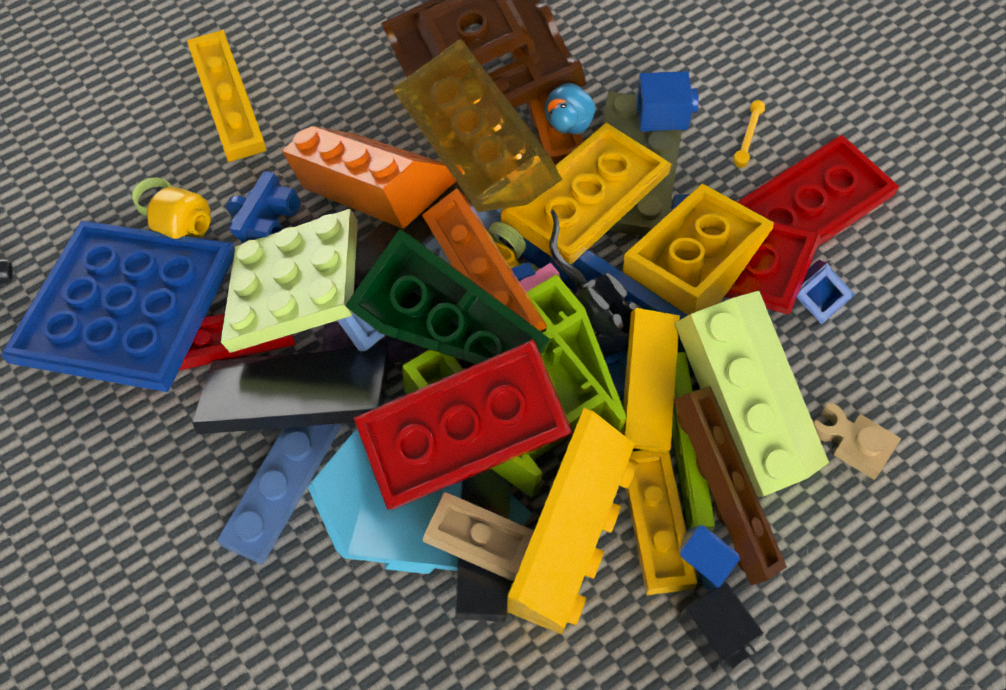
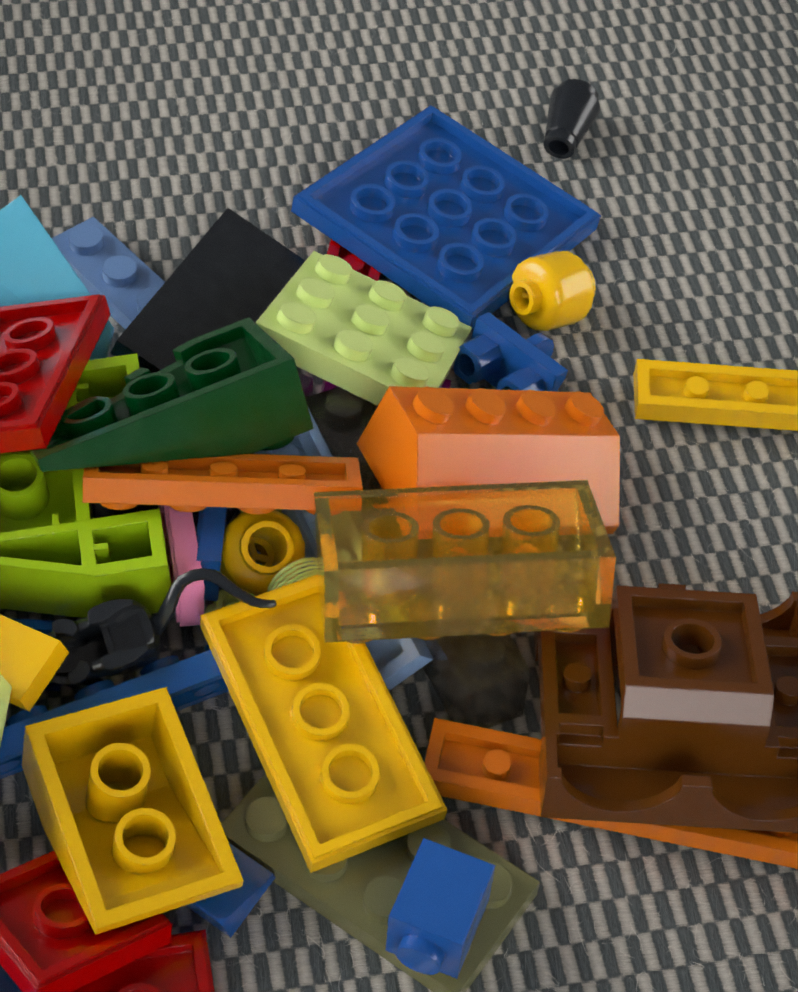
camera: 110 degrees right, 10 degrees down
(142, 187) = (626, 306): yellowish green axle -> none
(569, 109) = (495, 755): dark azure animal -> none

